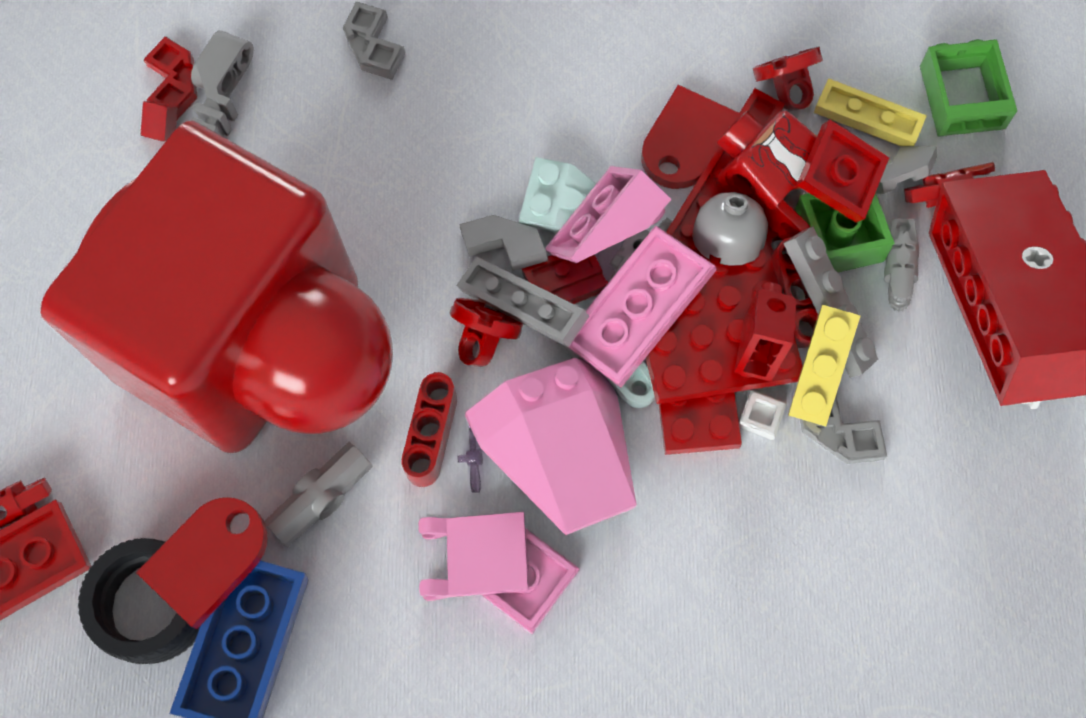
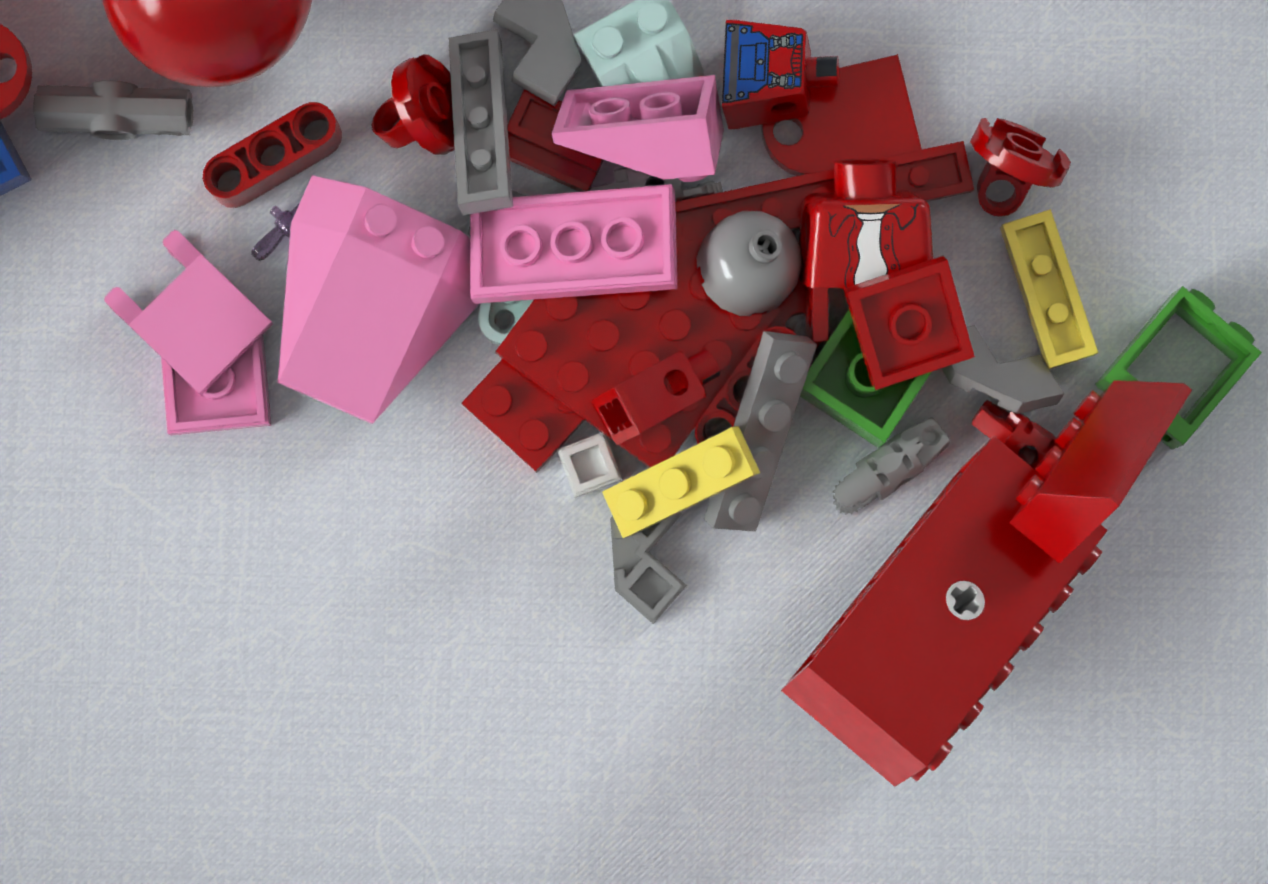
camera: 45 degrees right, 15 degrees up
(633, 139) = (770, 73): none -> torso
(1010, 138) = (1095, 462): none -> red slope

